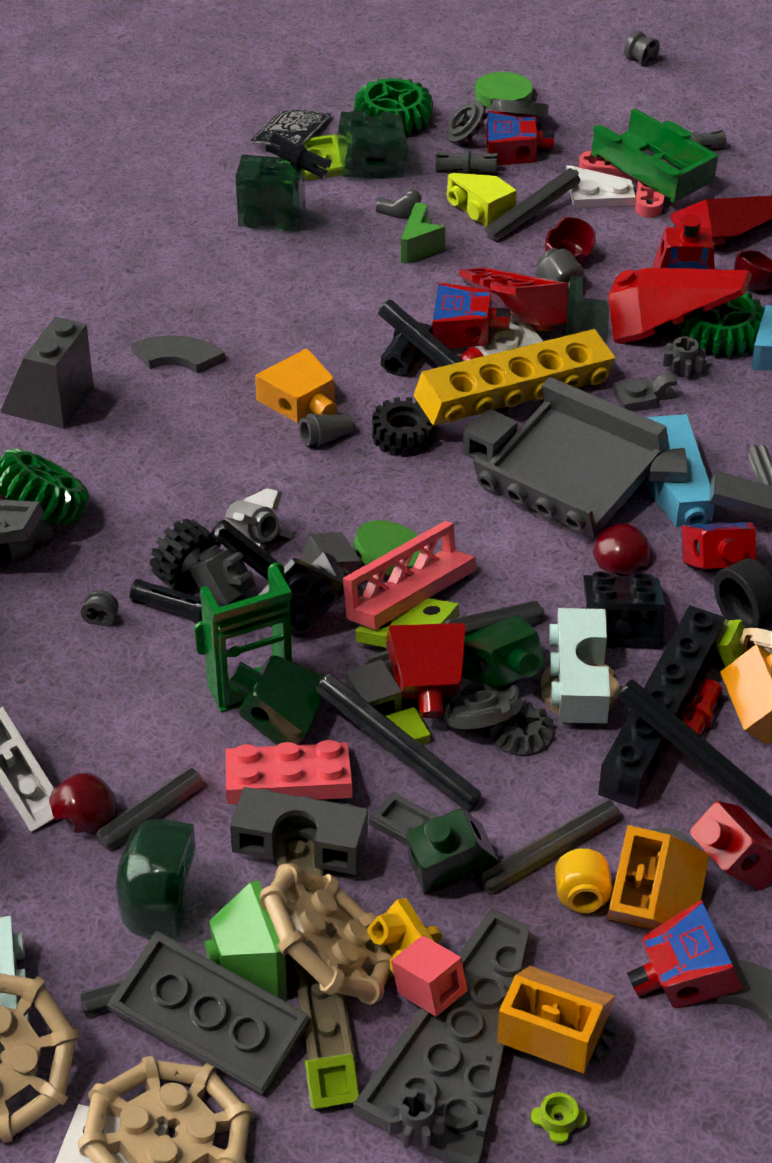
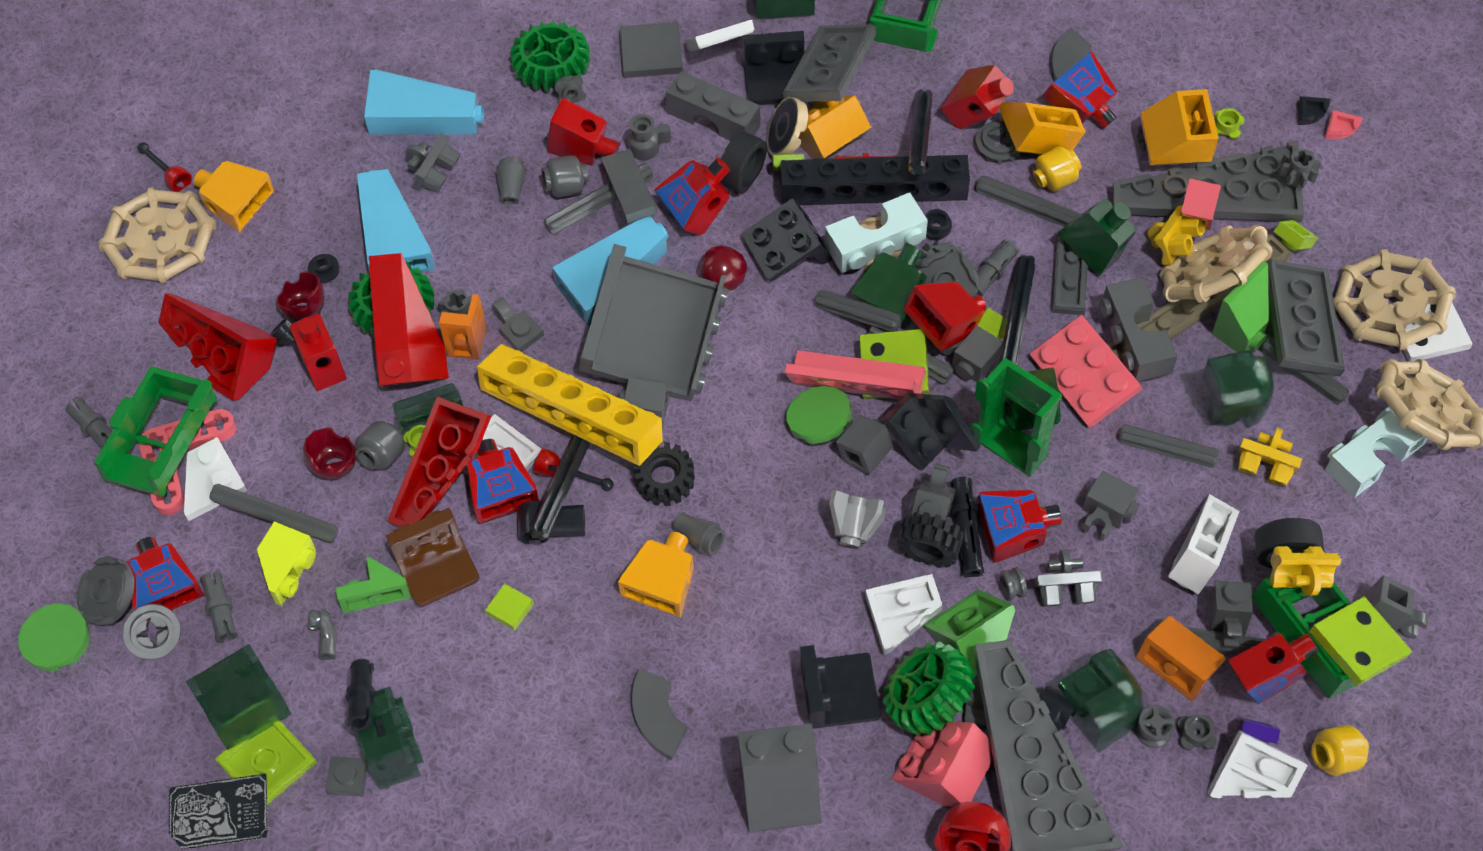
camera: 115 degrees left, 15 degrees up
(63, 880) = (1253, 453): none -> yellow hips
(69, 644) = (1051, 585): none -> hips
(77, 551) = (972, 621): none -> bright green slope
(84, 801) = (1202, 480): dark red hair -> none
(106, 446) = (838, 688): none -> black bracket
(121, 717) = (1110, 503): none -> dark grey brick
(140, 523) = (902, 609): none -> white wing
(159, 634) = (1014, 521): none -> torso
(237, 542) = (913, 476): black axle -> none
(345, 305) = (509, 607): none -> lime tile
(399, 98) = (158, 696): green gear -> none
(420, 275) = (432, 557): none -> reddish brown bracket
(481, 762) = (993, 266): none -> dark grey pin
(574, 734) = (939, 217): none -> black plate
(645, 340) = (464, 333): none -> orange panel
(669, 466) = (635, 246): dark grey tile -> none
(724, 255) = (283, 332): none -> black plate

